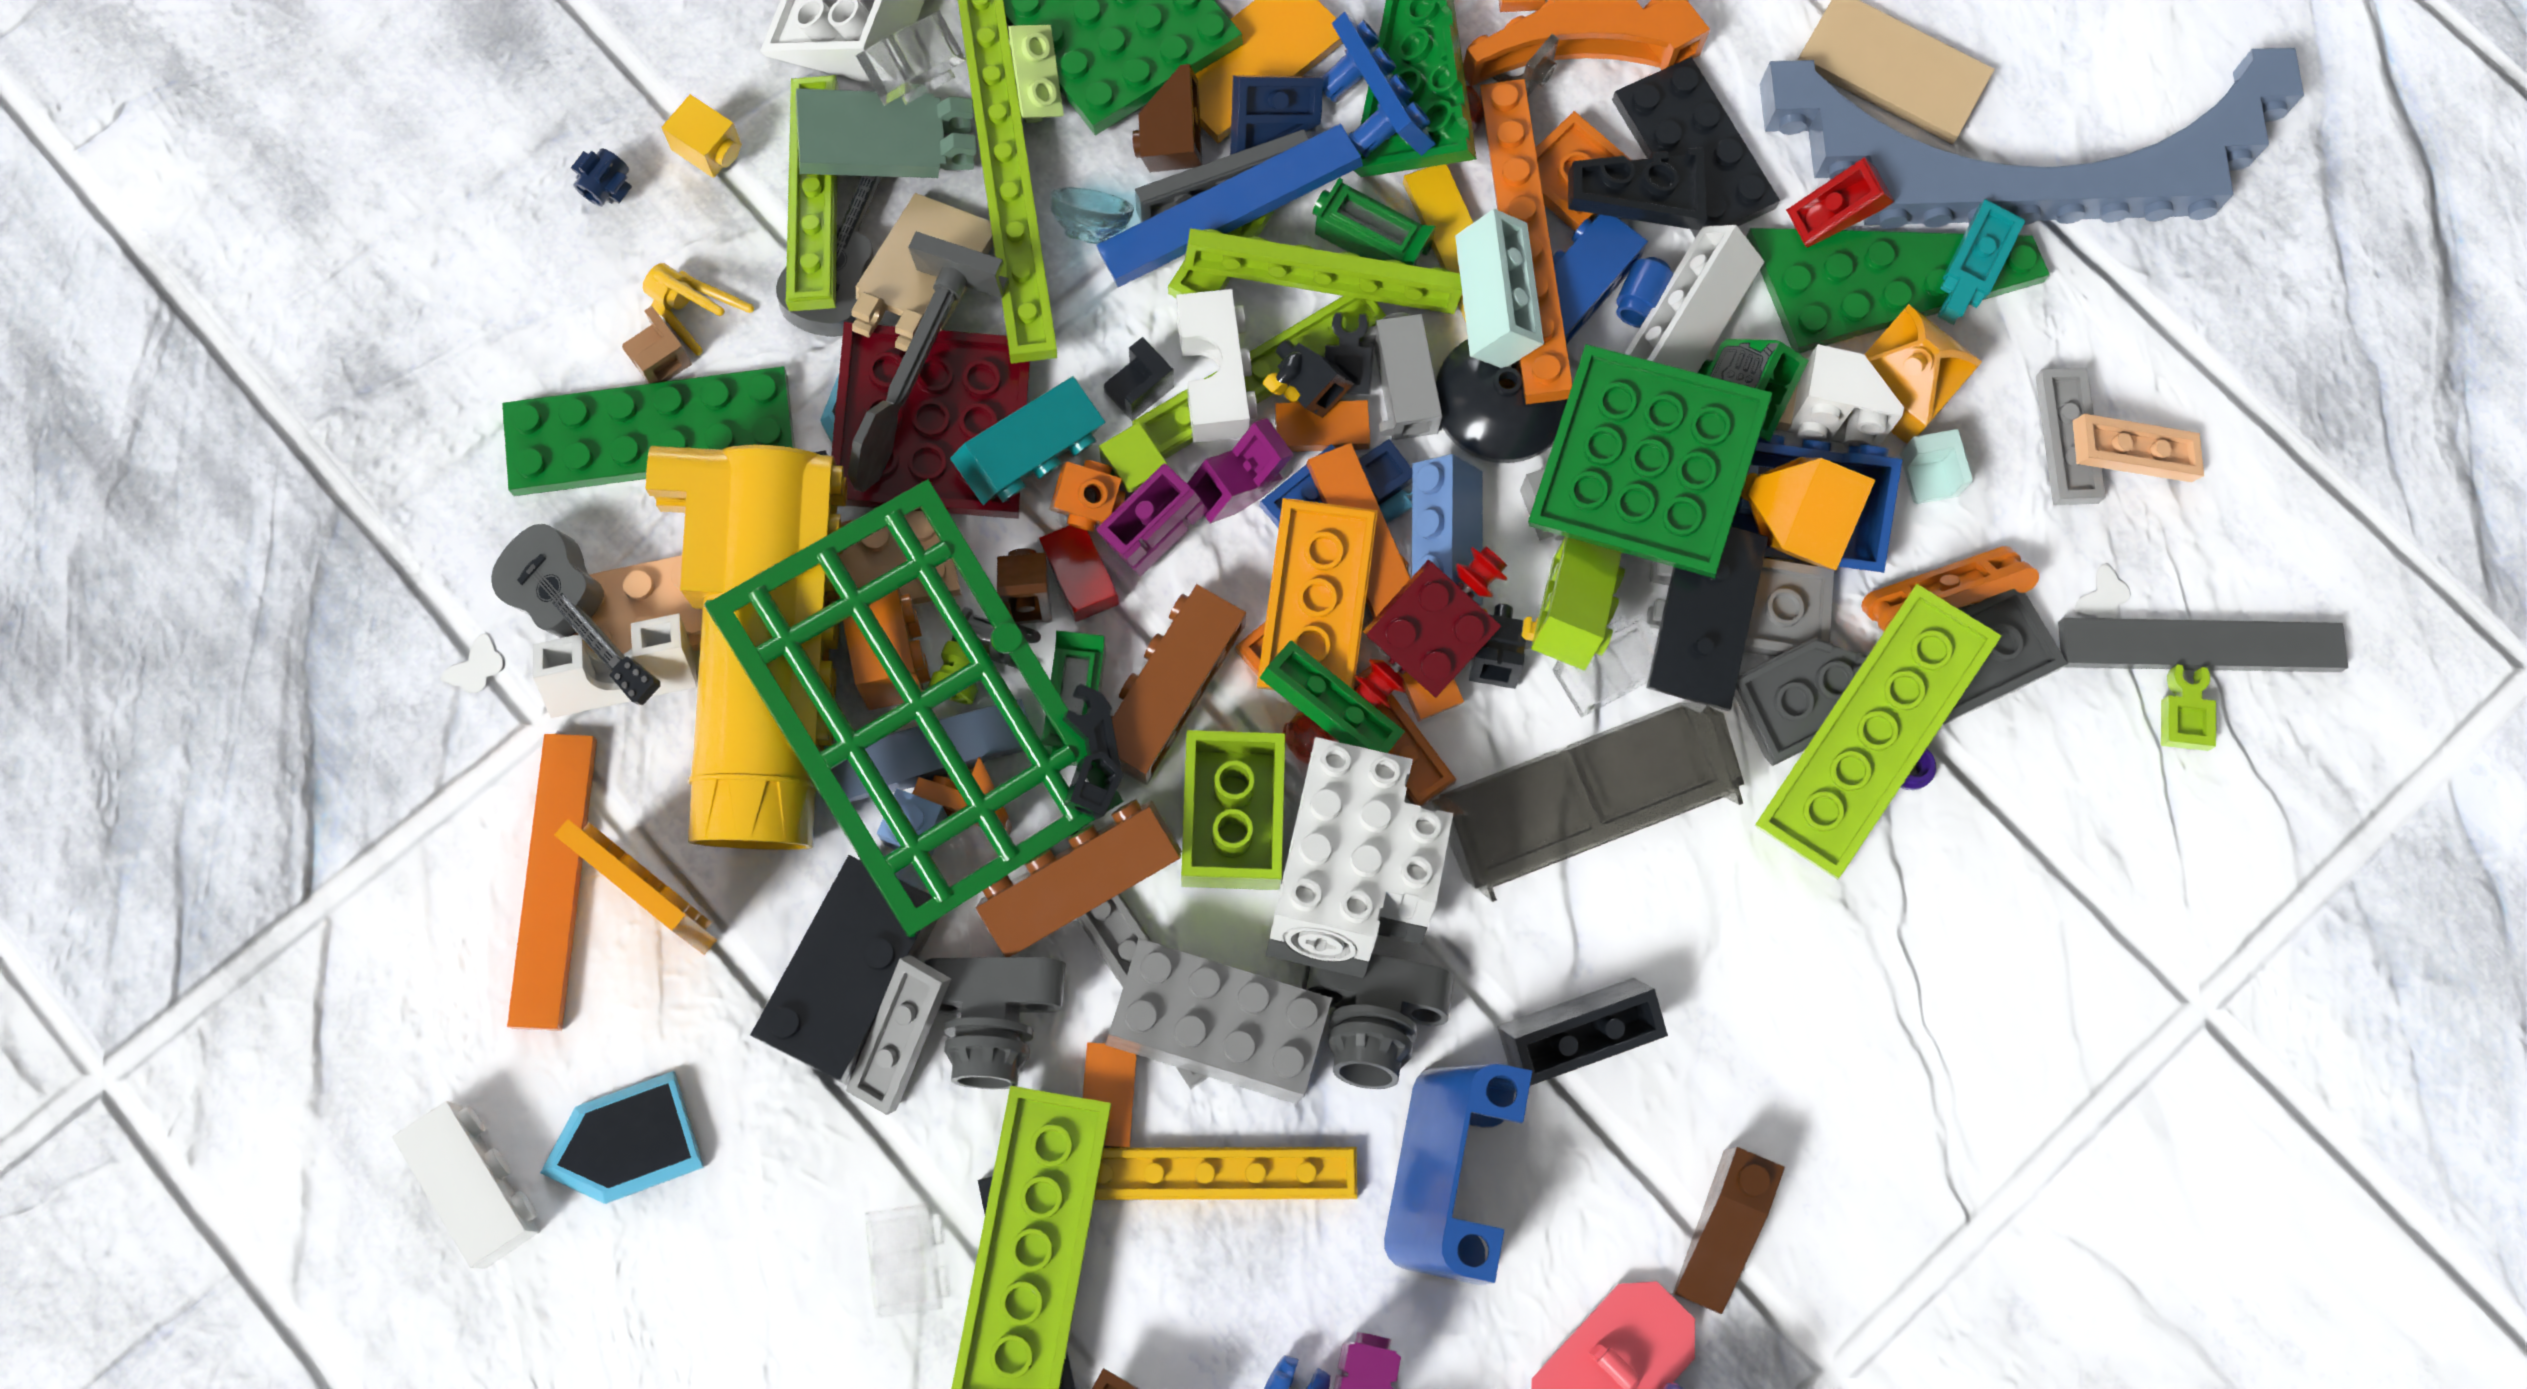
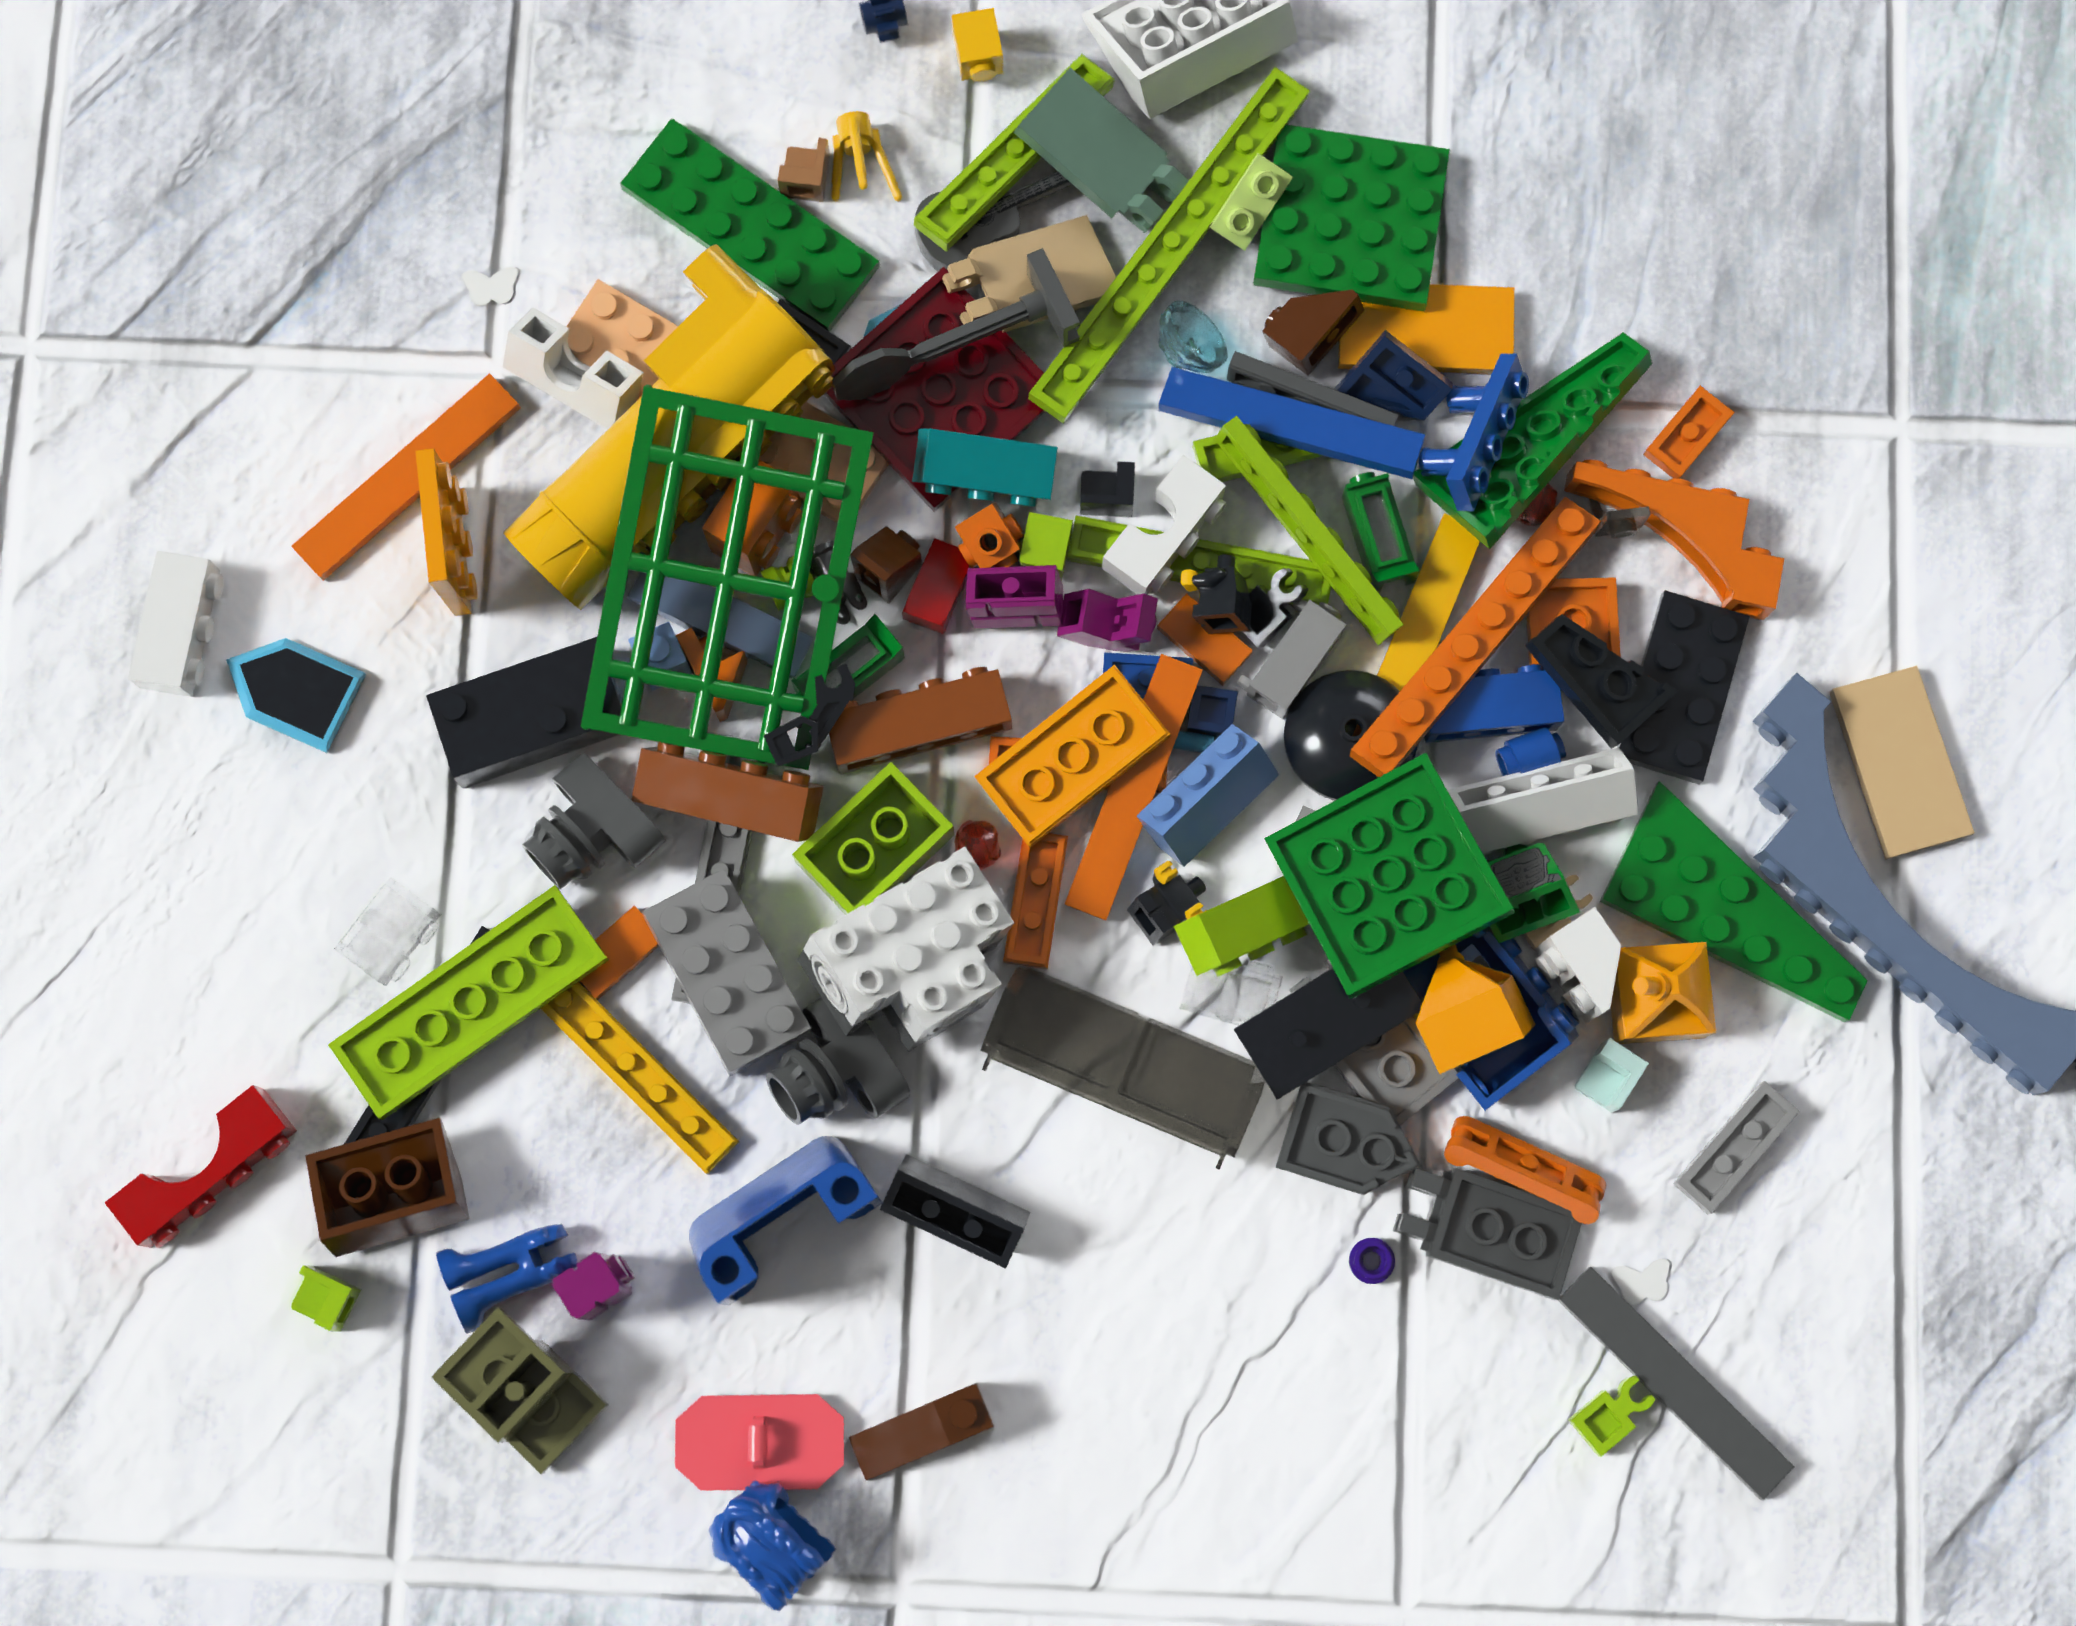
camera: 50 degrees right, 5 degrees up
(548, 580) = (583, 271): dark grey piece -> none
(898, 1034) = (518, 784): light grey plate -> none
(912, 58) = (1169, 117): clear brick -> none
(1329, 701) = (1006, 834): green plate -> none
(1432, 628) = (1123, 848): dark red plate -> none
(1499, 289) = (1408, 657): light aqua brick -> none
(1840, 203) = (1739, 824): red slope -> none
(1877, 731) = (1364, 1211): lime plate -> none
(1978, 259) = (1798, 958): teal hinge -> none
(2138, 448) = (1772, 1202): light nougat plate -> none

